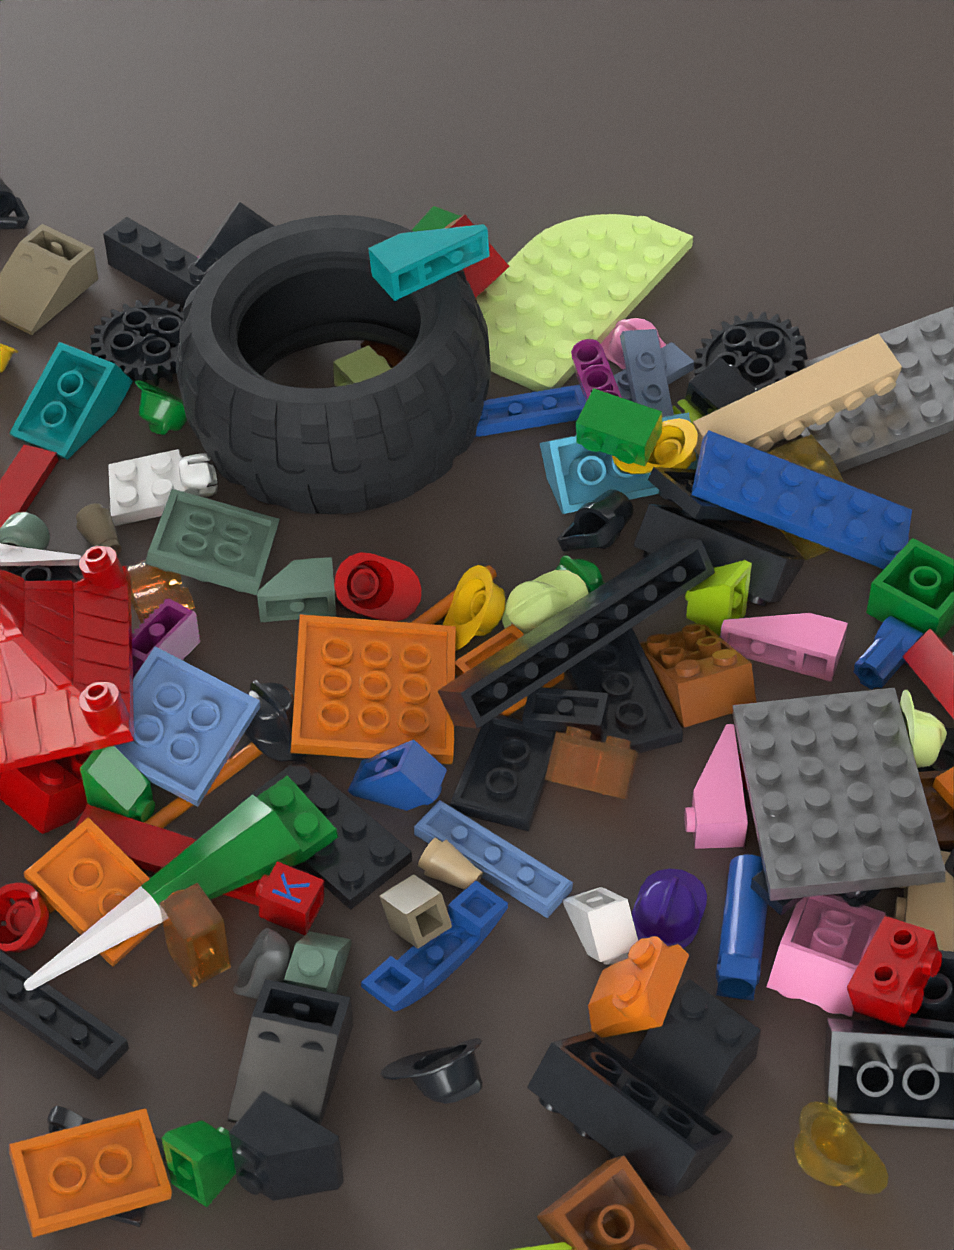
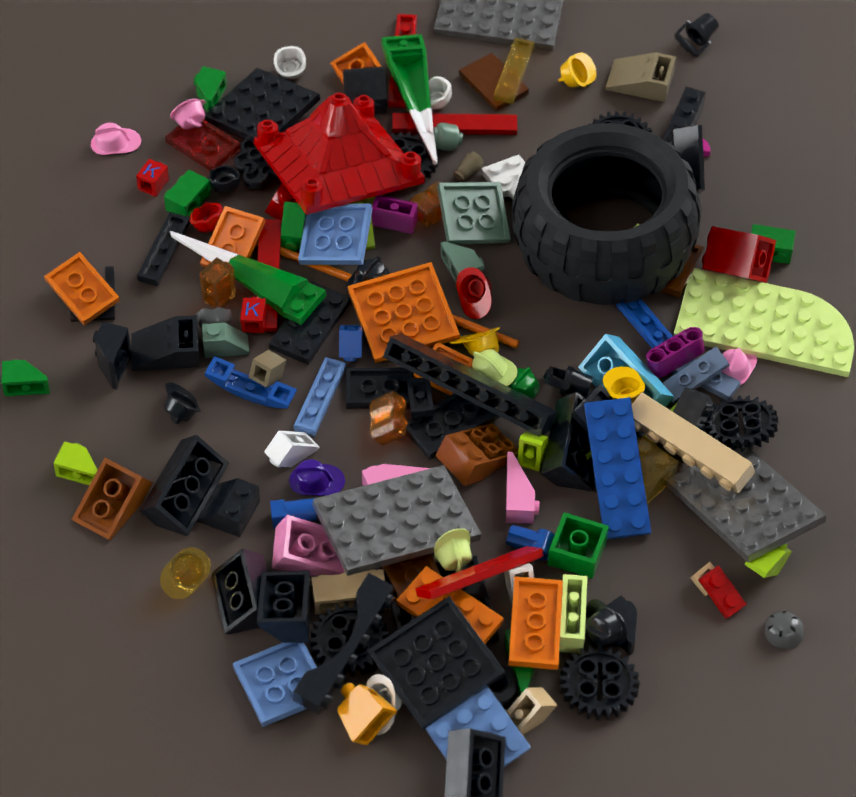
camera: 70 degrees right, 5 degrees up
(70, 401) = (550, 119): teal slope -> none
(199, 1160) = (94, 316): green slope -> none
(424, 257) = (649, 204): teal slope -> none
(448, 865) = (305, 376): tan cone -> none
(618, 427) = (621, 358): green brick -> none
(638, 989) = (248, 467): orange slope -> none
(894, 972) = (284, 565): red brick -> none

